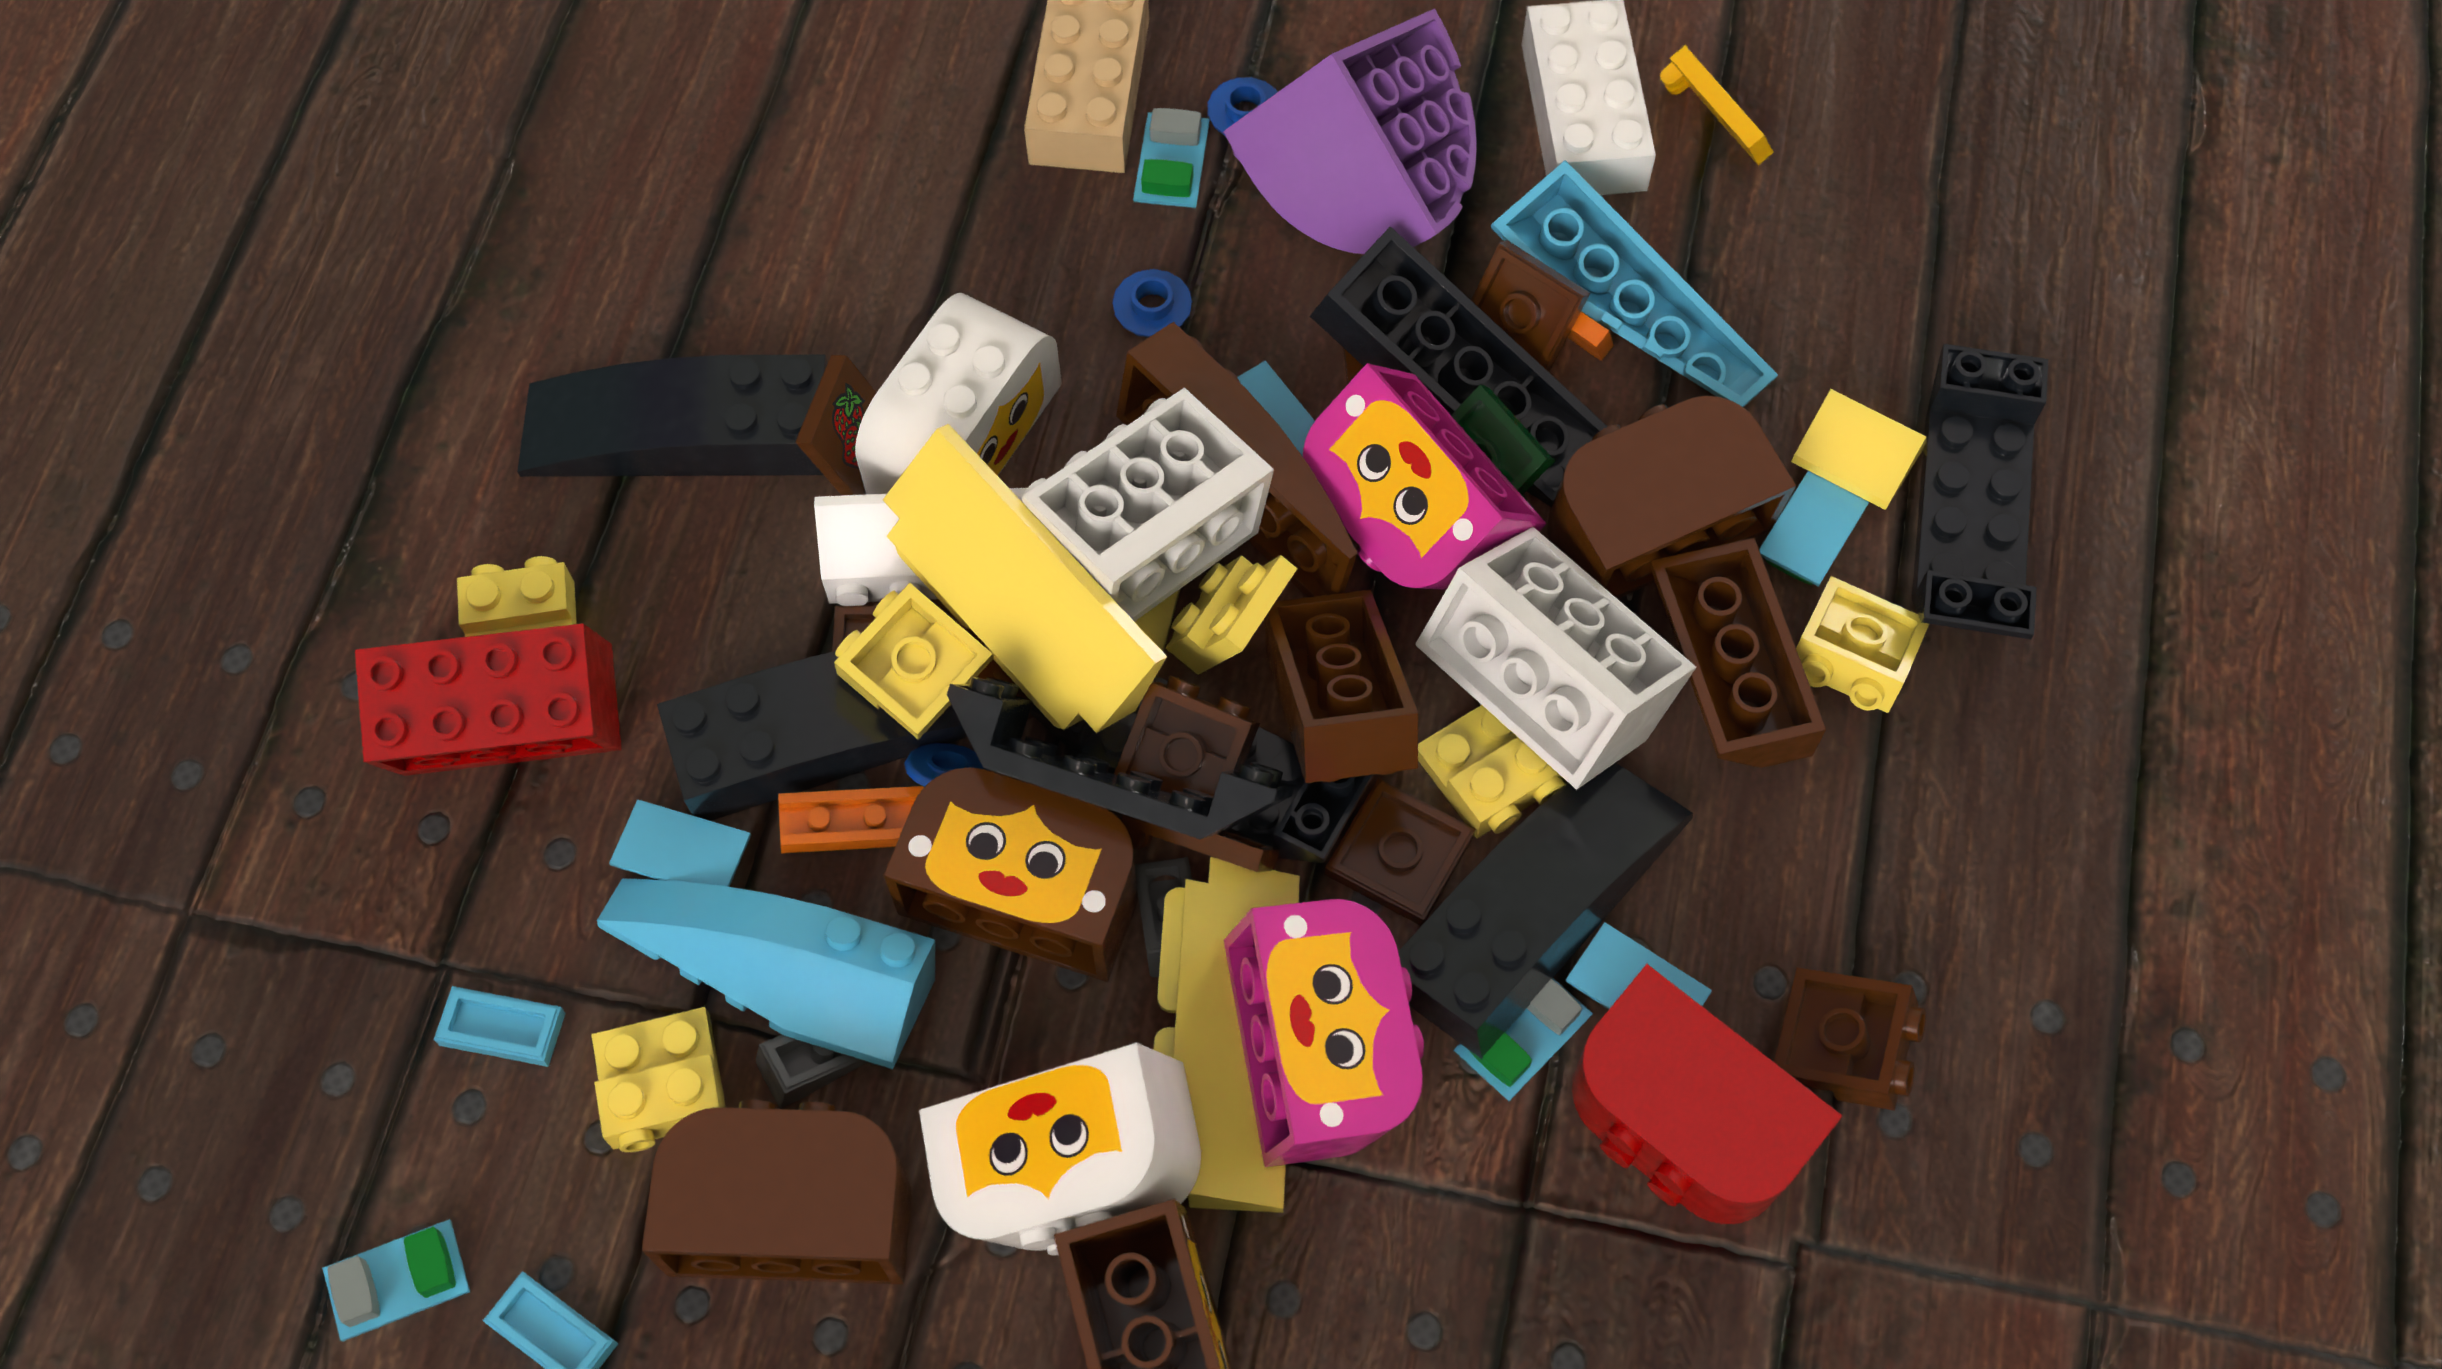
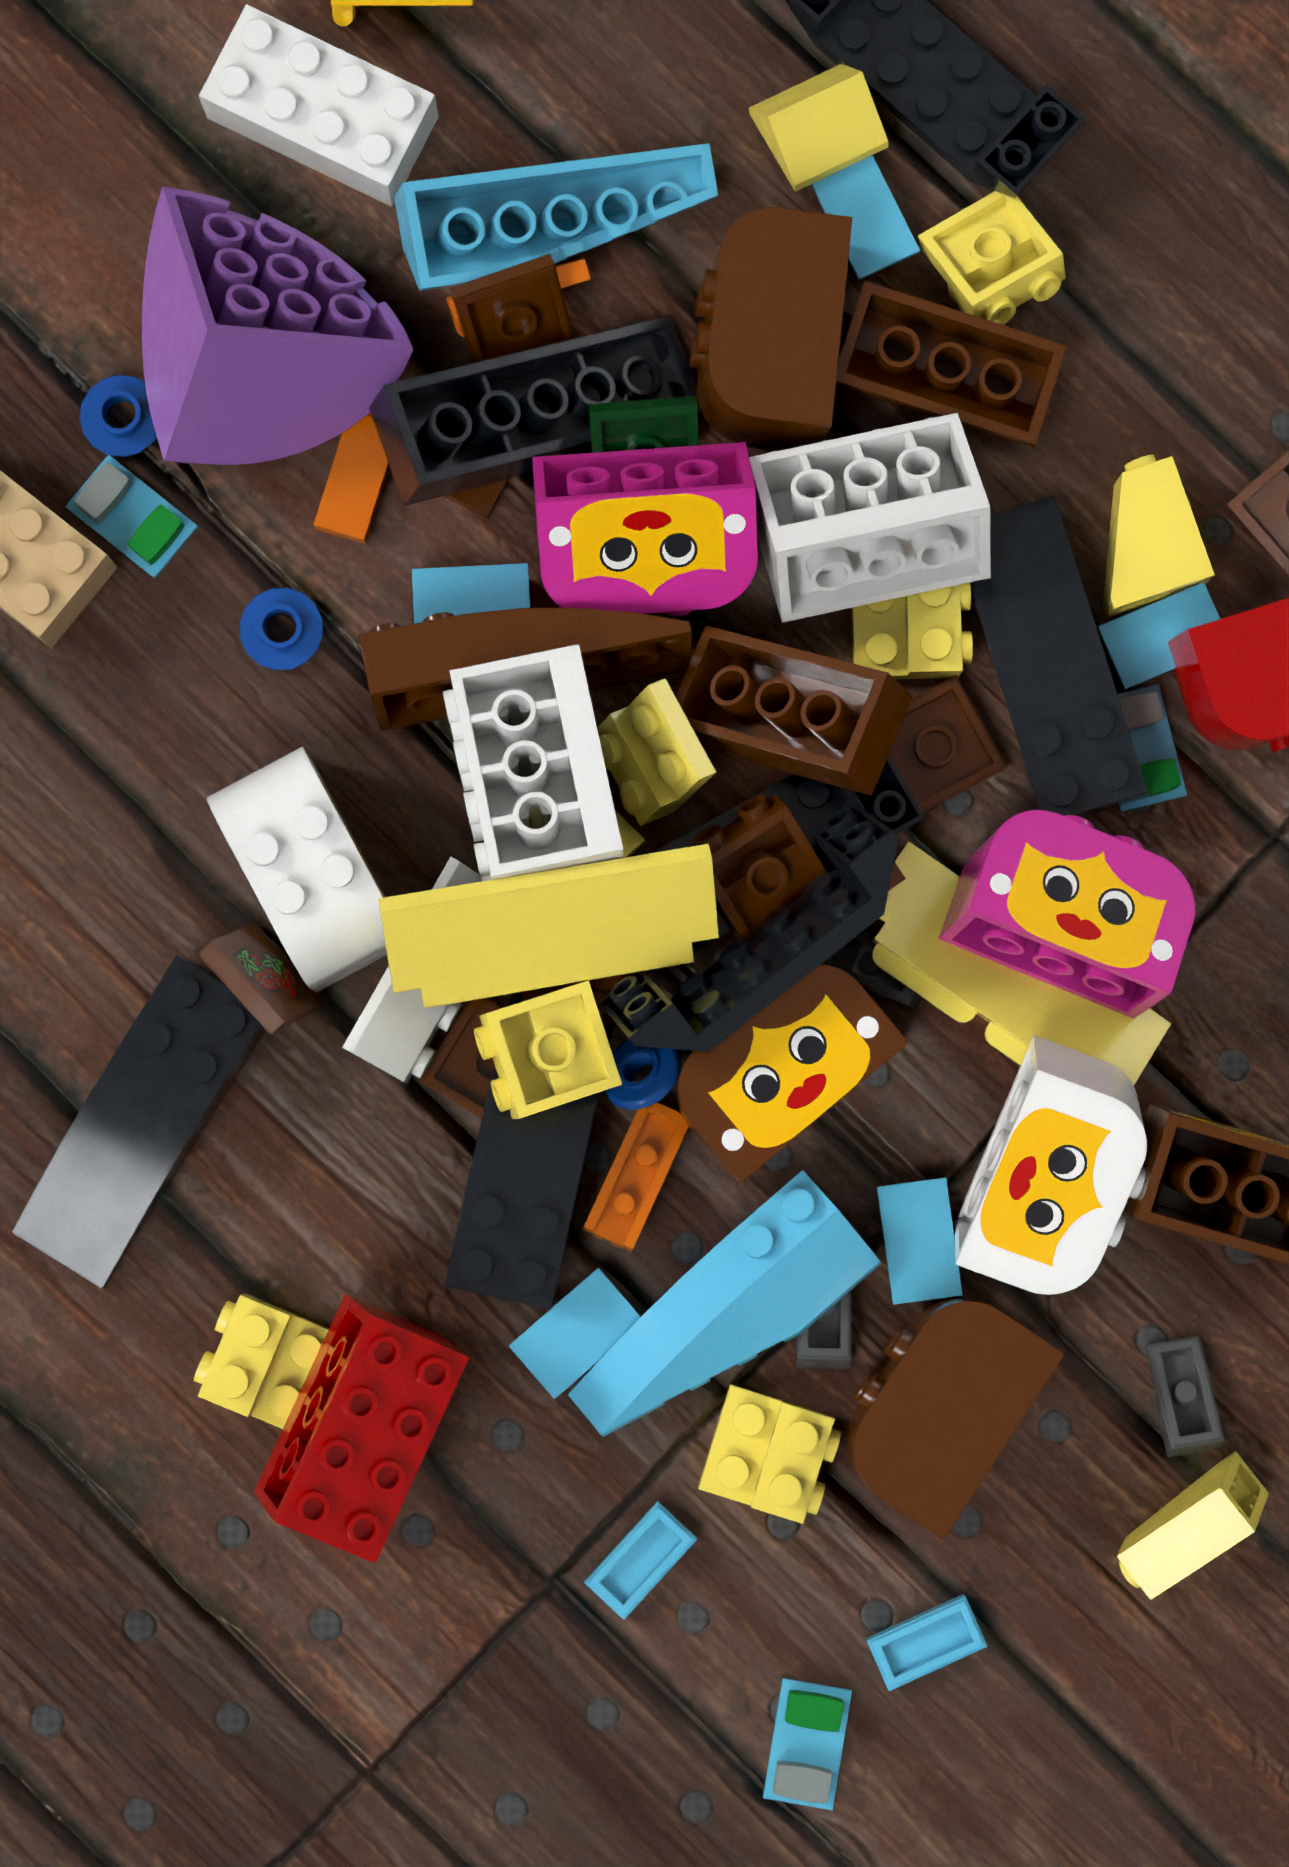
camera: 65 degrees left, 20 degrees up
(944, 1074) = (919, 1241): none -> medium azure piece
(1299, 289) = (354, 483): none -> orange hinge
(1714, 918) = (1151, 538): none -> light yellow slope

